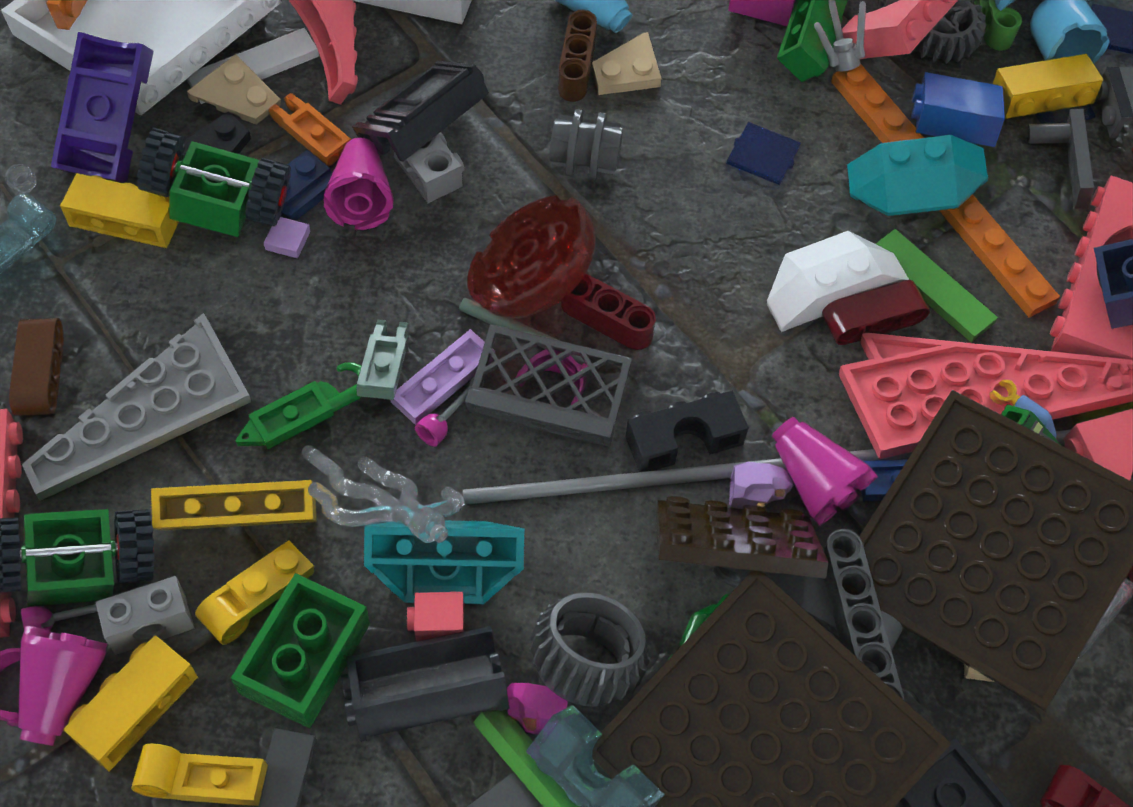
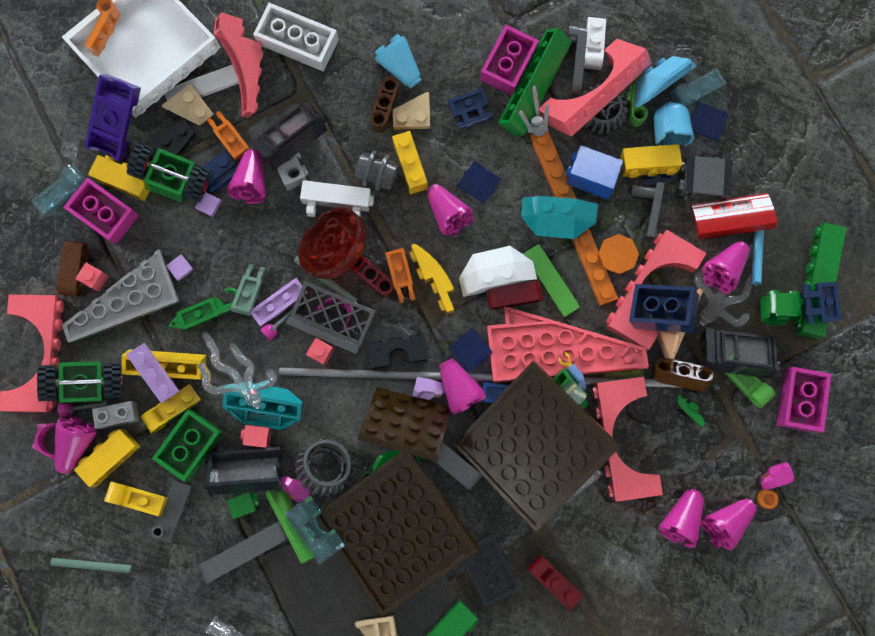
camera: 10 degrees right, 20 degrees up
(78, 374) = (92, 277): none -> coral brick
(89, 262) = (101, 211): none -> dark pink brick
(216, 514) = (152, 372): none -> lavender plate
(245, 343) = (179, 267): none -> lavender tile
(431, 755) = (243, 504): none -> green brick
(499, 194) = (335, 196): none -> white brick
(539, 447) = (320, 352): none -> coral brick
(644, 134) = (410, 162): none -> yellow brick
(655, 290) = (400, 273): none -> orange hinge
(719, 40) = (468, 103): none -> dark blue plate
(721, 292) = (431, 271): none -> yellow slope
(727, 192) = (449, 210): none -> dark pink cone
(823, 406) = (470, 350): none -> clear blue piece
(858, 608) = (457, 467): dark grey beam -> none
(1038, 226) = (618, 254): none -> orange piece

